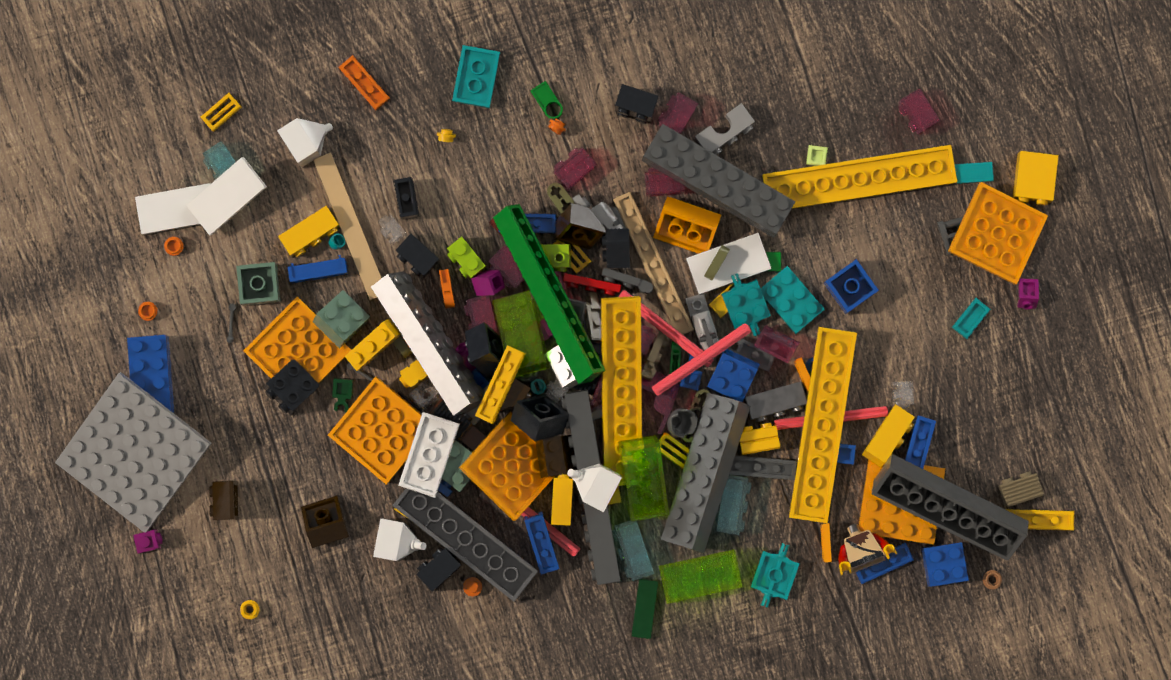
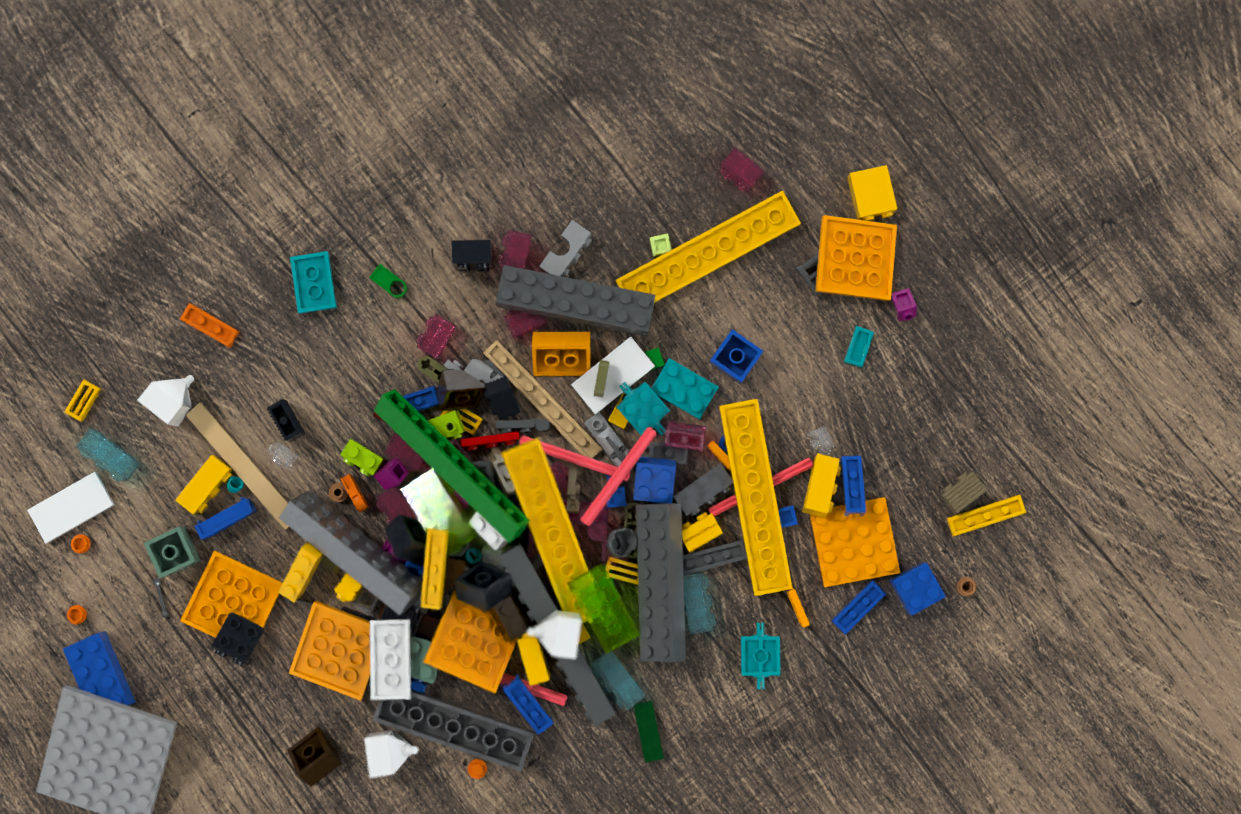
camera: 20 degrees left, 0 degrees up
(224, 500) = (211, 771): dark brown slope -> none
(226, 196) = (112, 479): white tile -> none
(341, 319) = (262, 558): sand green brick -> none
(342, 390) = (289, 625): dark green plate -> none
(417, 255) = (315, 471): black brick -> none
(431, 289) = (333, 488): none -> medium nougat plate
(438, 569) = (436, 769): black brick -> none
(446, 135) = (303, 348): yellow plate -> none
(557, 126) = (406, 302): orange plate -> none
(675, 357) = (594, 482): green piece -> none
(700, 576) = (690, 683): clear neon green brick -> none
(862, 550) = (835, 603): torso -> none
(950, 507) = (904, 533): dark grey brick -> none
(974, 172) = (813, 209): teal tile -> none

